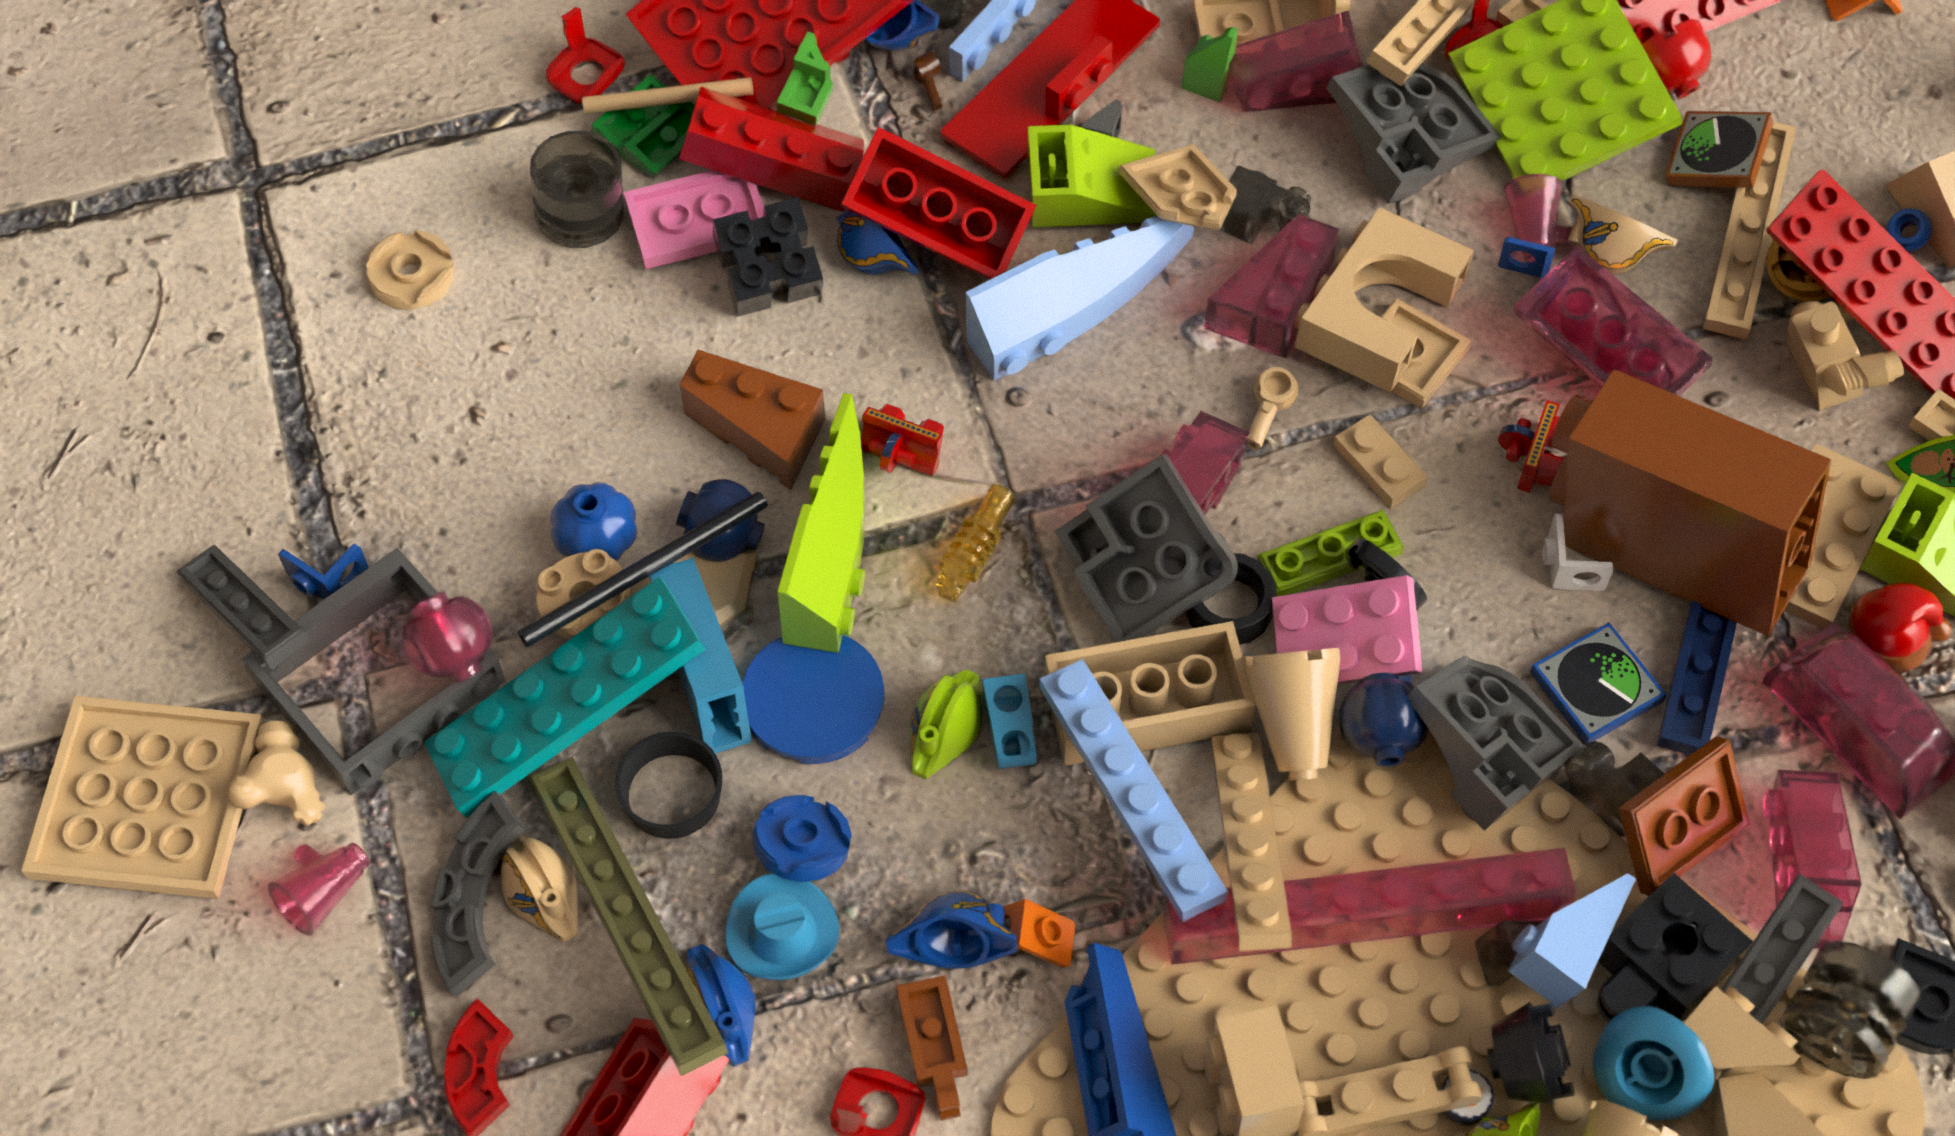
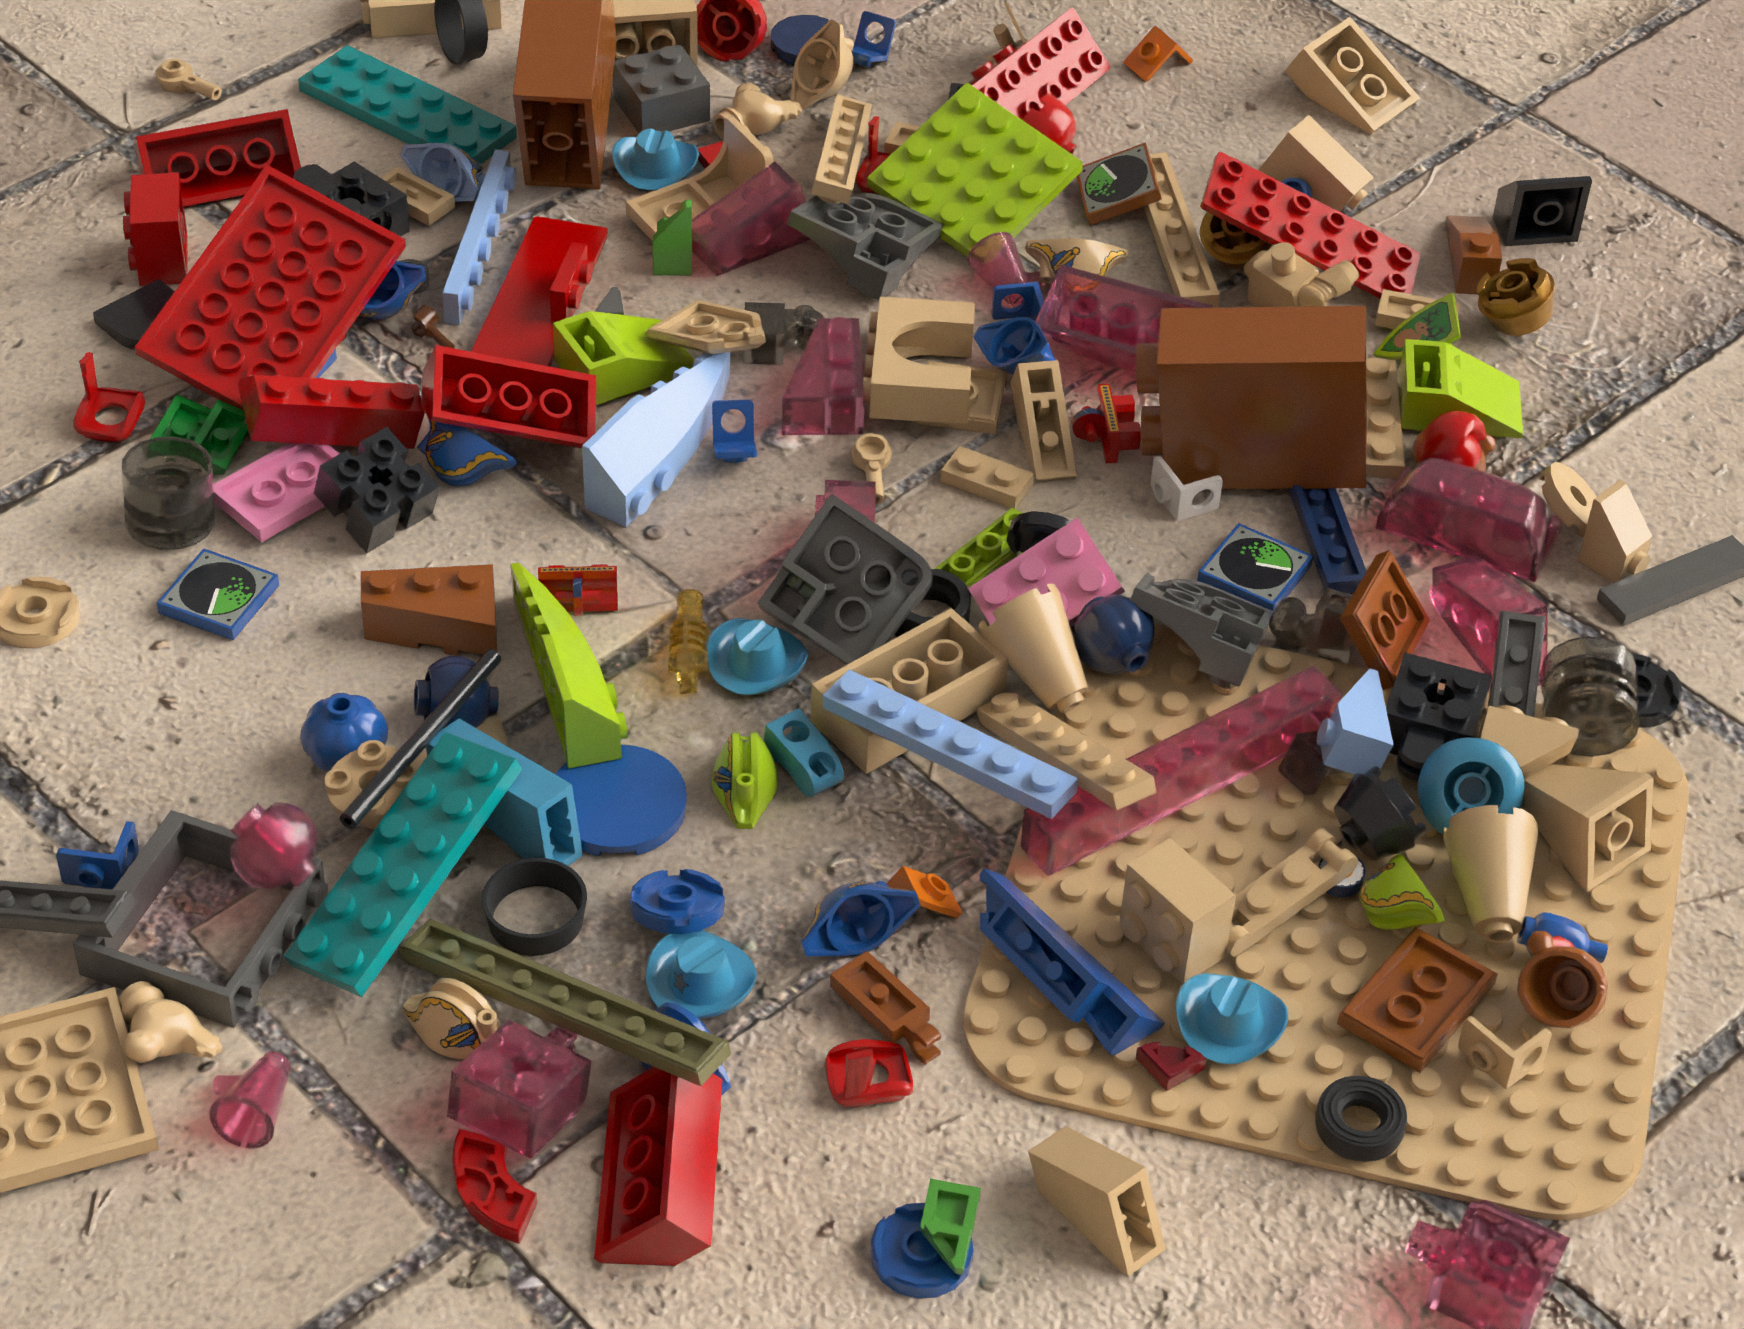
camera: 30 degrees left, 15 degrees down
(461, 891) = (392, 1052): dark grey tile -> none
(546, 983) = (520, 1087): none -> clear pink hinge
(577, 313) = (218, 594): none -> tile
(663, 96) = (195, 406): tan bar -> none
(808, 84) = (336, 349): bright green slope -> none
(1029, 585) = (754, 656): none -> dark azure hat
(1144, 327) = (738, 445): none -> blue bracket
(1470, 423) = (1043, 420): none -> tan slope
(1486, 322) = (1013, 342): none -> blue hat

